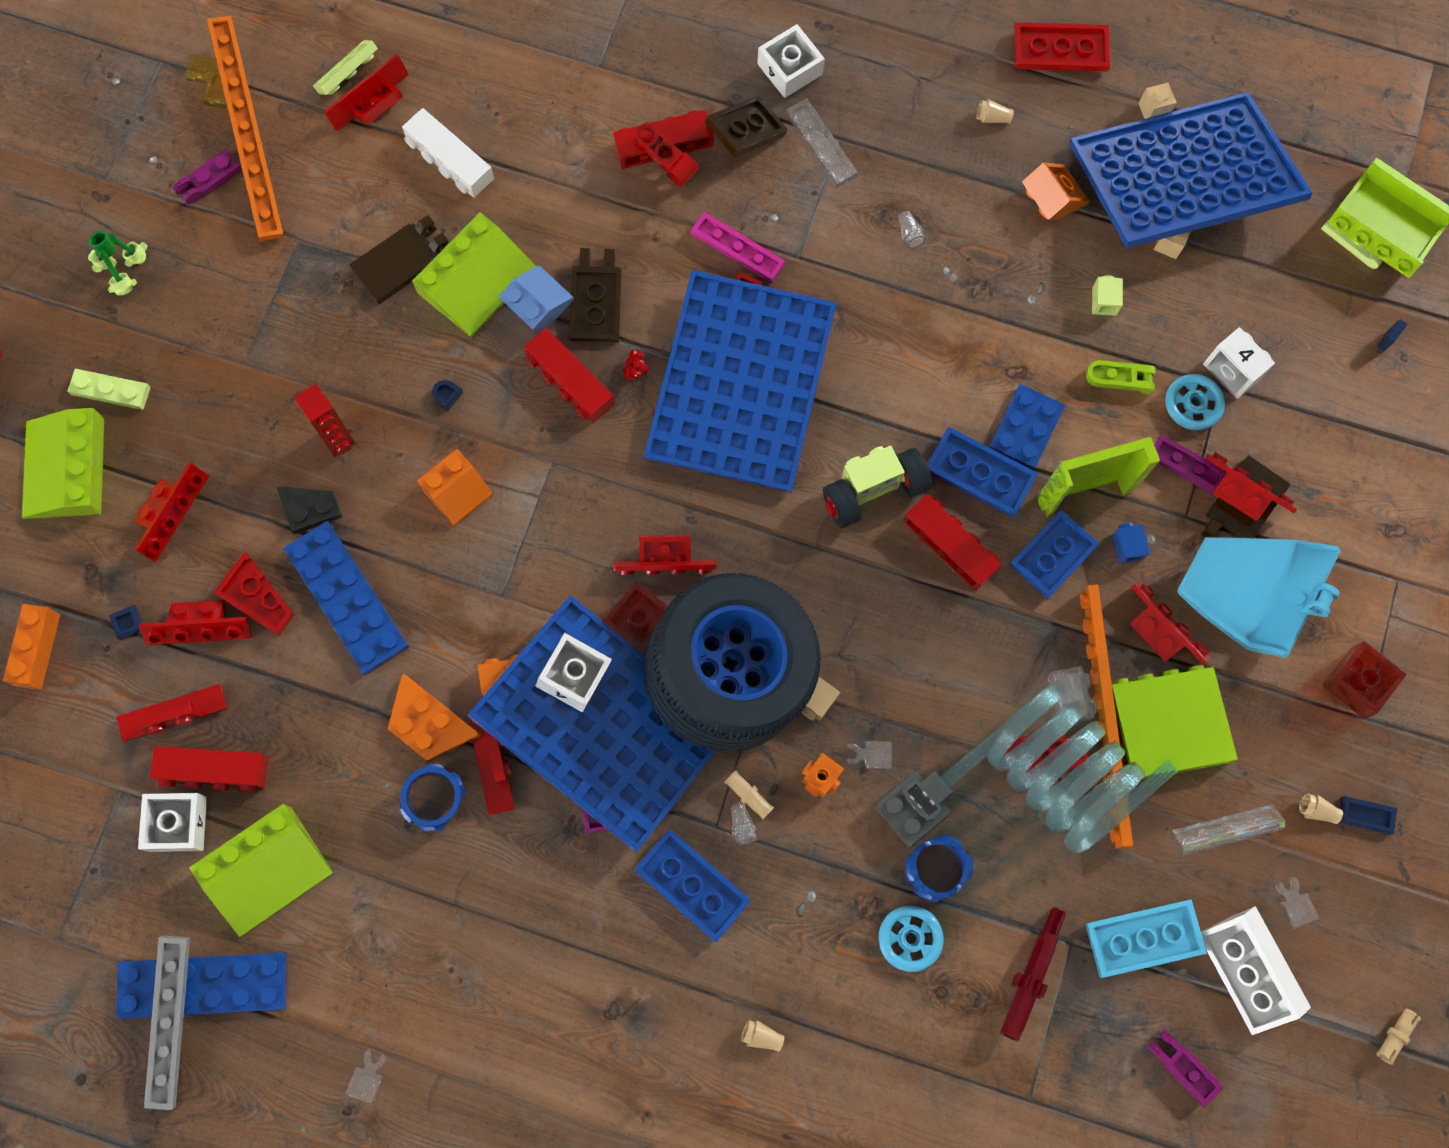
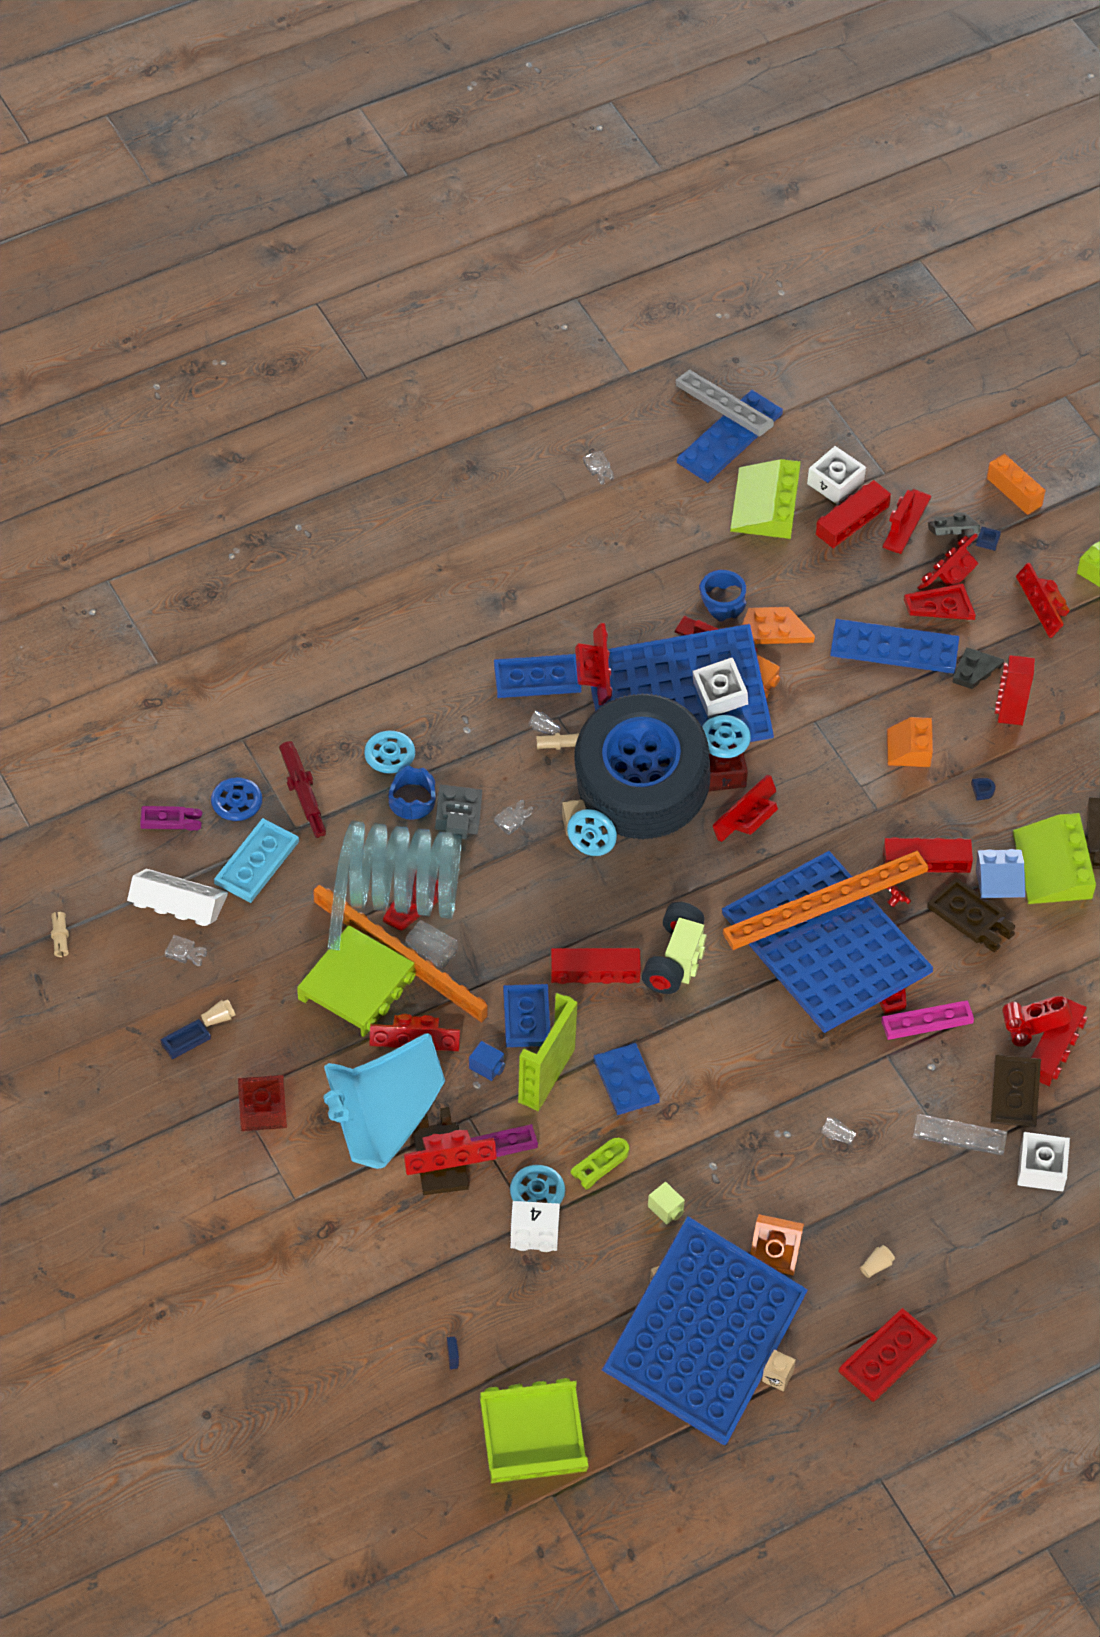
camera: 135 degrees right, 20 degrees down
(141, 660) = (953, 524): none -> pearl dark grey wing
(611, 609) = (725, 731): none -> medium azure plate
(648, 823) = (593, 664): none -> red bracket
(708, 404) = (825, 900): none -> orange plate
(761, 1036) = (421, 642): tan cone -> none
(825, 767) = (528, 780): orange brick -> none
(831, 663) = (600, 819): none -> medium azure plate
(981, 472) = (624, 1023): blue plate -> none
(1117, 1015) = (234, 813): none -> blue plate
(1228, 829) = (264, 954): clear plate -> none

